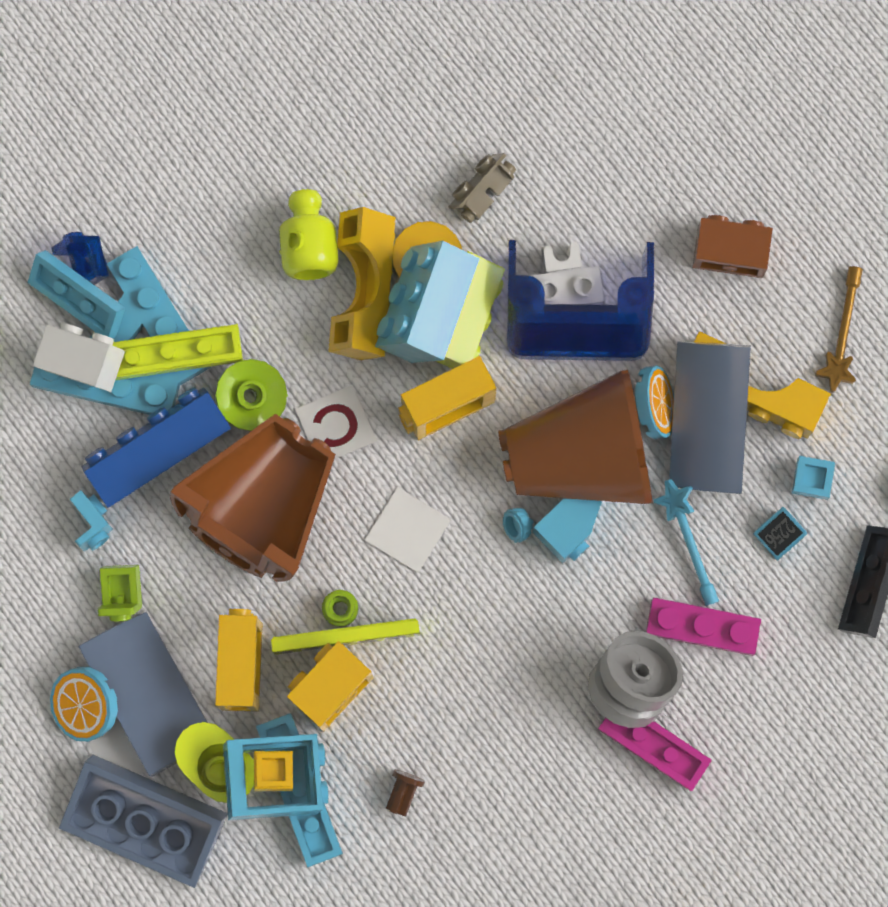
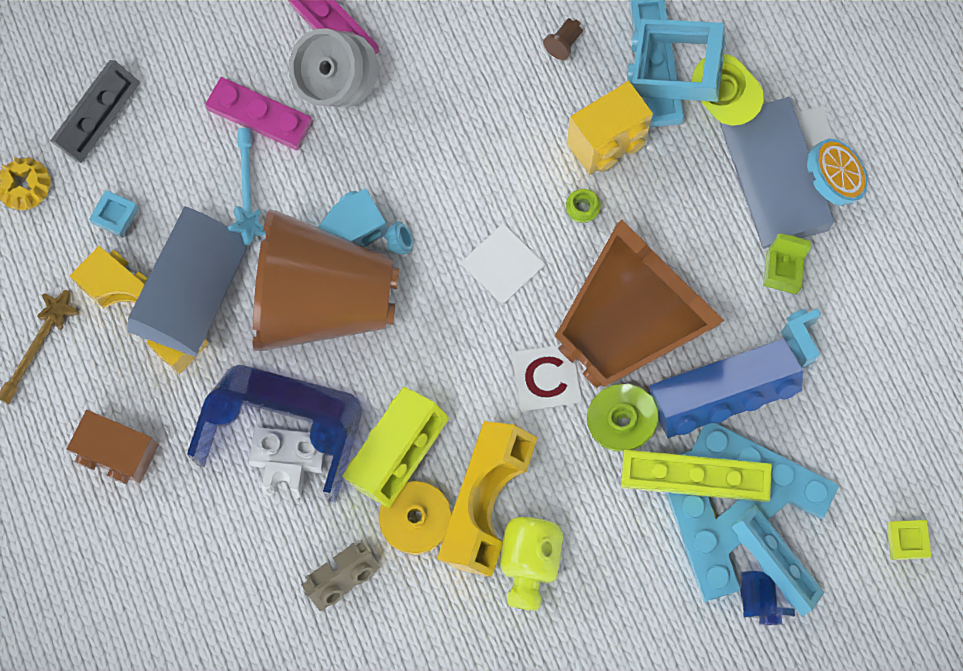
camera: 165 degrees left, 5 degrees down
(79, 357) = (788, 483): white brick -> none
(143, 820) = (801, 68): sand blue slope -> none
(239, 661) = (688, 168): yellow window -> none
(273, 771) = (679, 53): yellow tile -> none
(345, 636) = (584, 176): neon yellow tile -> none
(426, 302) = (428, 449): medium azure brick -> none
(447, 398) = (435, 359): yellow window -> none
(655, 402) = (235, 309): tile -> none
(780, 533) = (162, 174): slope -> none

